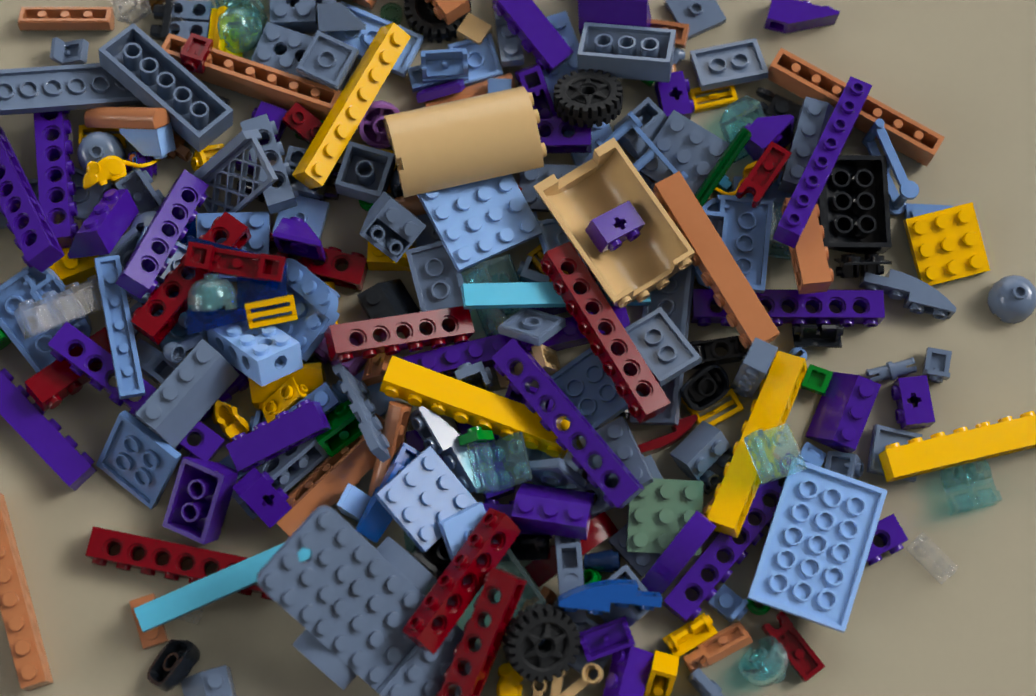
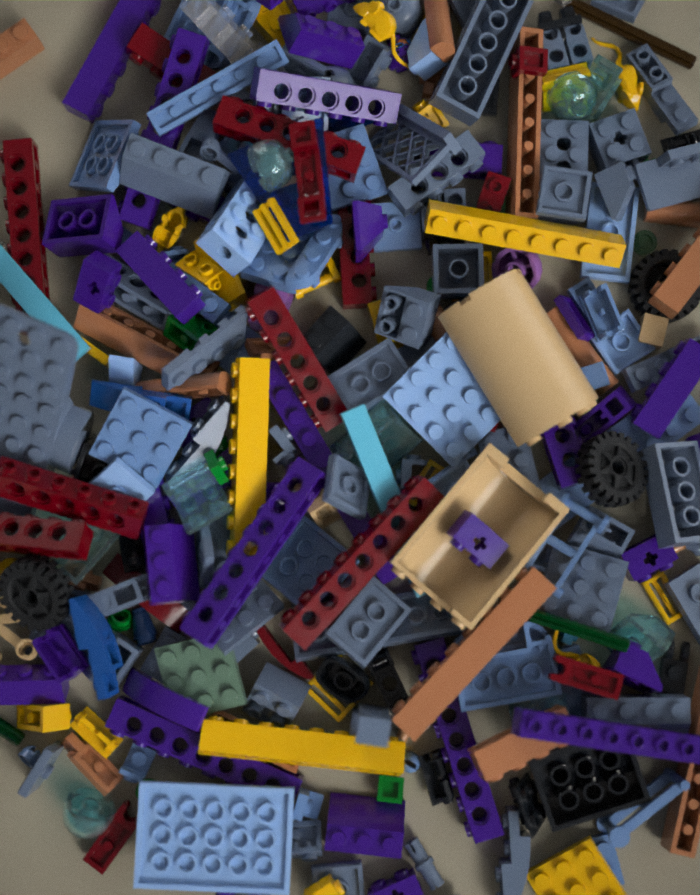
camera: 75 degrees right, 10 degrees up
(774, 453) = (287, 771): clear light blue bracket -> none

